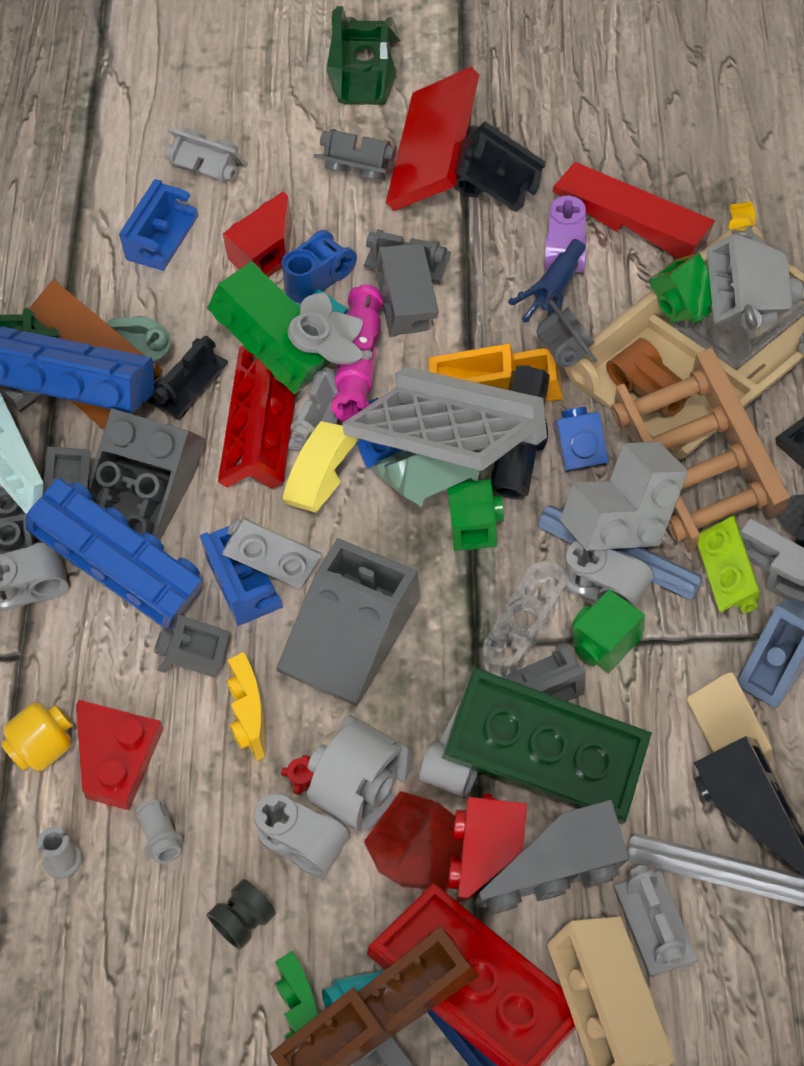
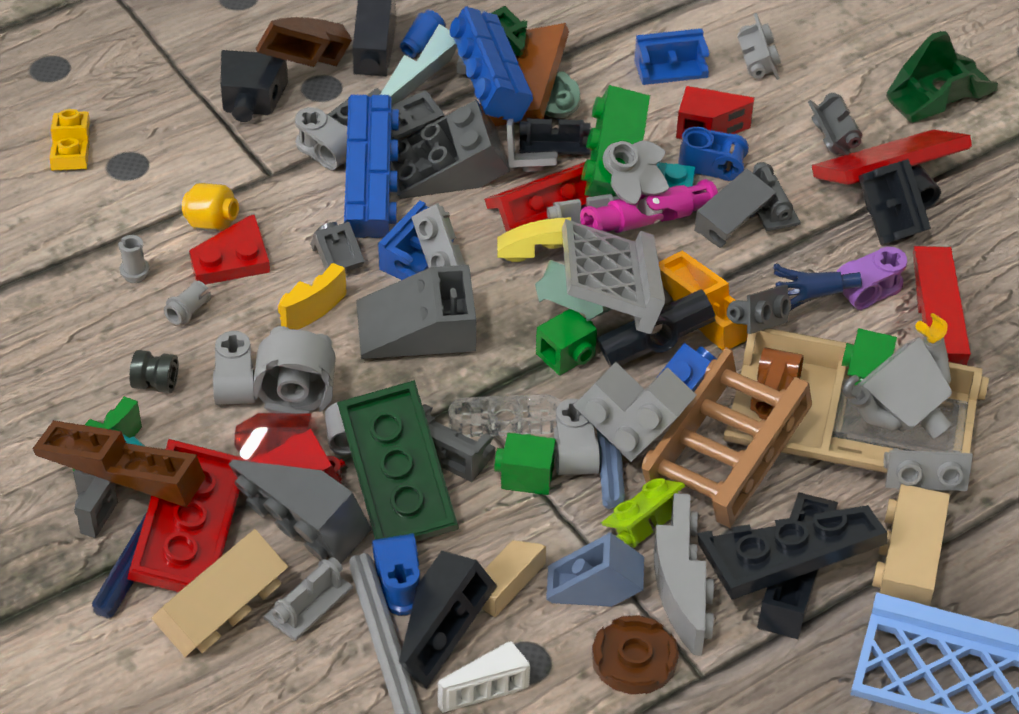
camera: 50 degrees right, 10 degrees down
(199, 415) = (528, 161): none -> light grey bracket
(672, 814) = (398, 571): none -> blue piece

